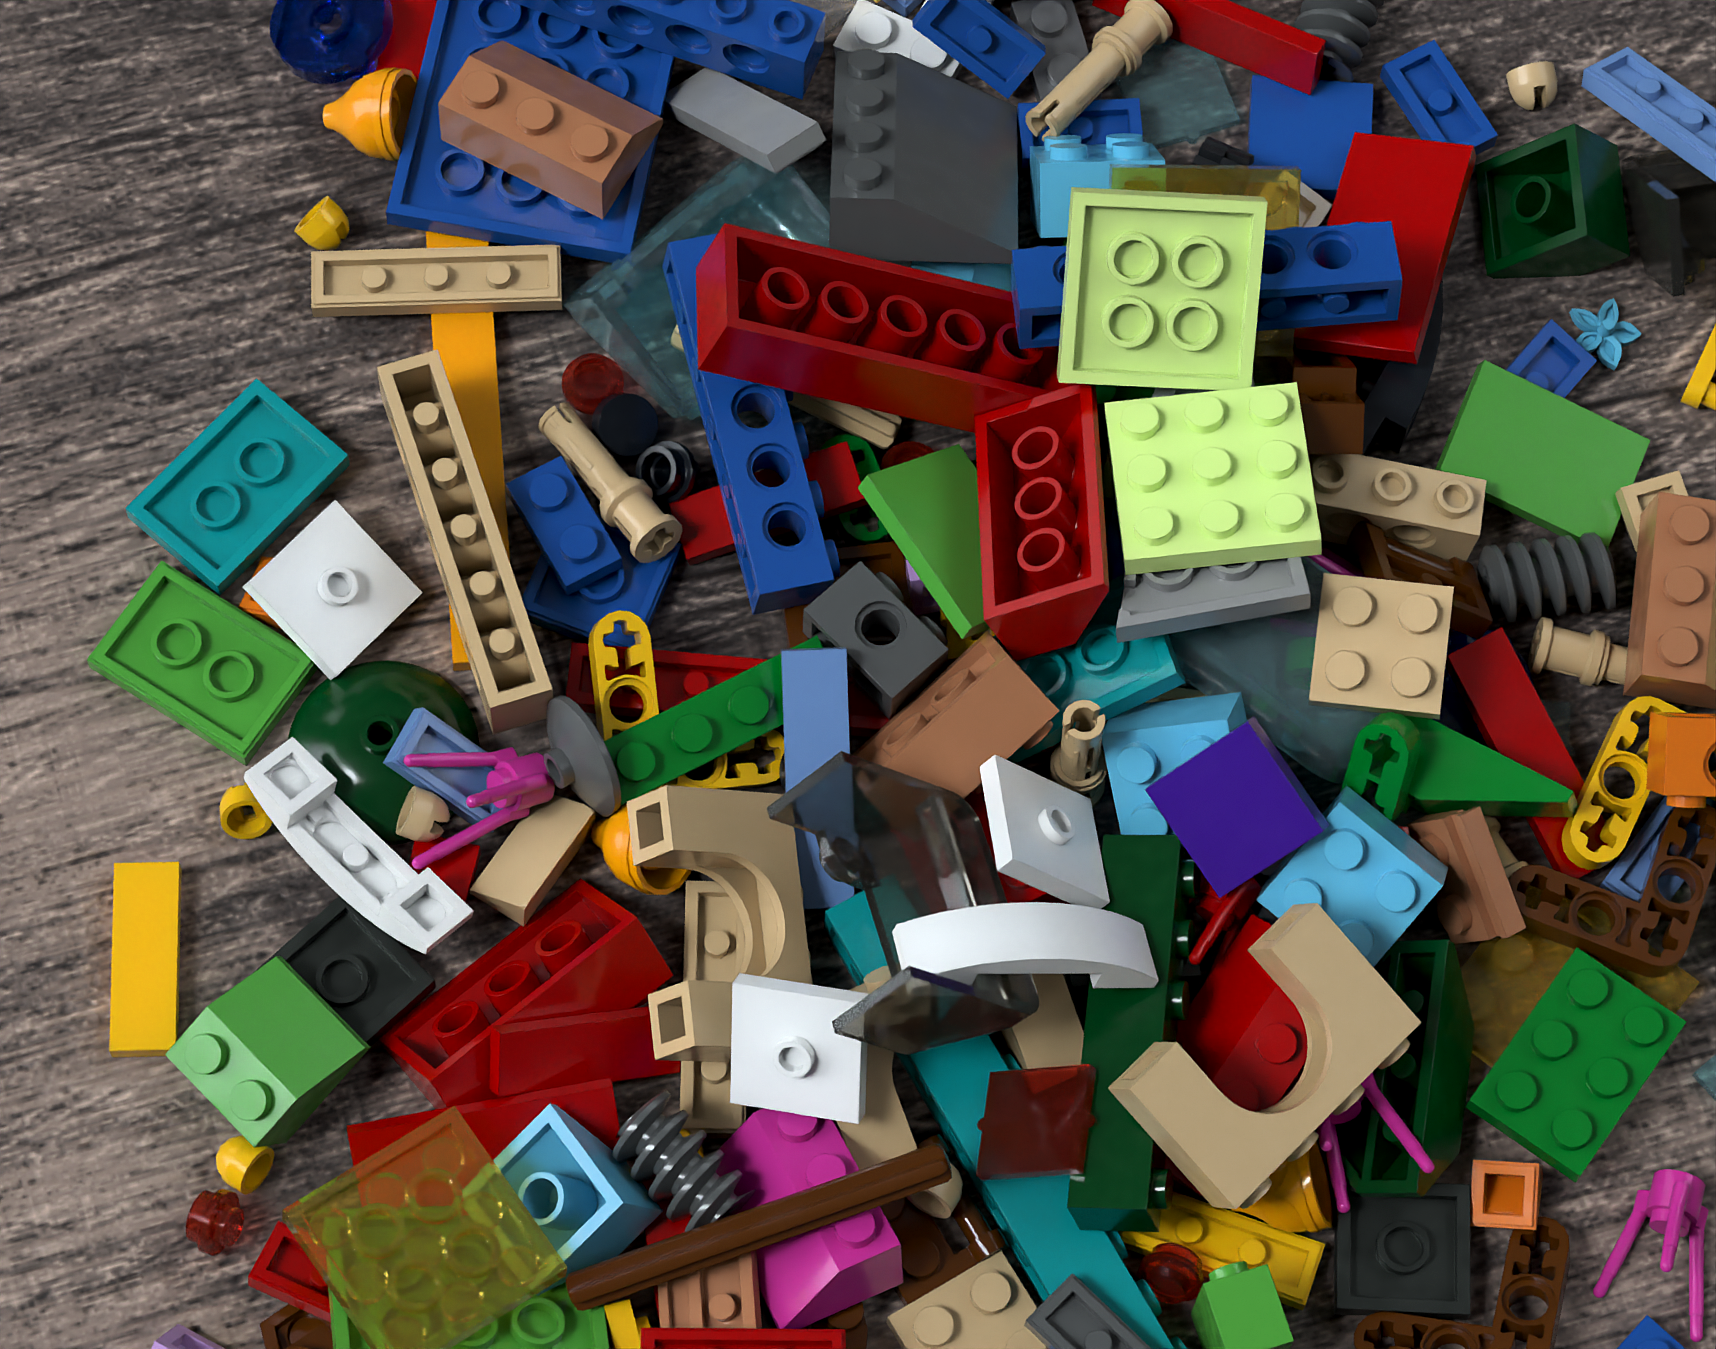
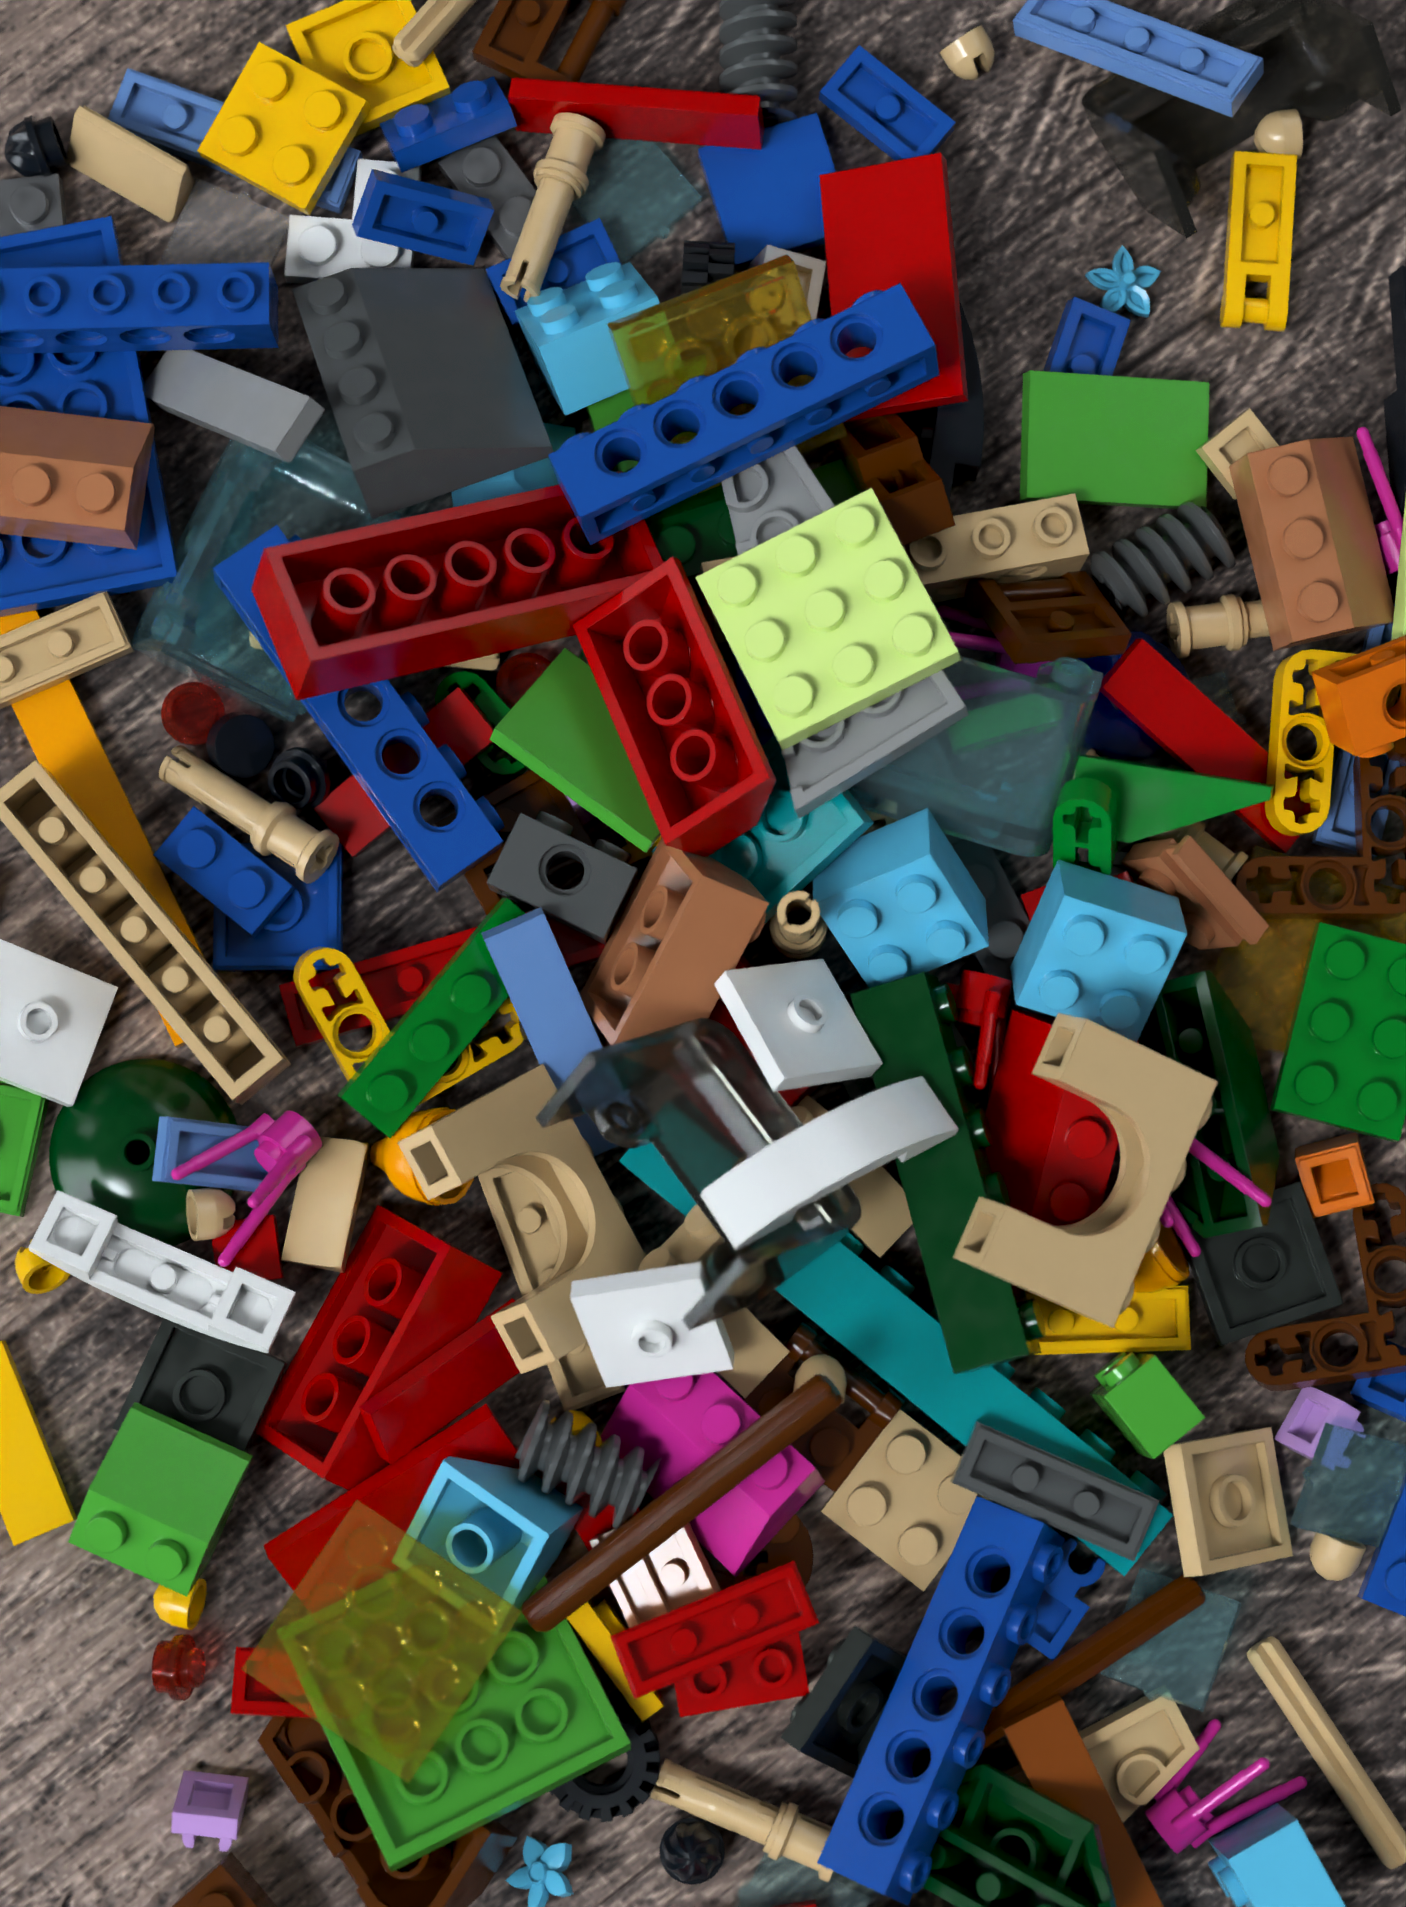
camera: 20 degrees left, 15 degrees up
(580, 757) = (332, 1108): dark grey dish -> none
(1036, 1122) = (893, 1298): clear red piece -> none
(1161, 289) = (710, 450): yellowish green plate -> none
(1172, 1273) = (1061, 1370): clear red plate -> none
(1237, 807) = (969, 932): dark purple tile -> none
(1381, 645) = (1045, 717): tan plate -> none
(1553, 207) = (1033, 176): dark green slope -> none

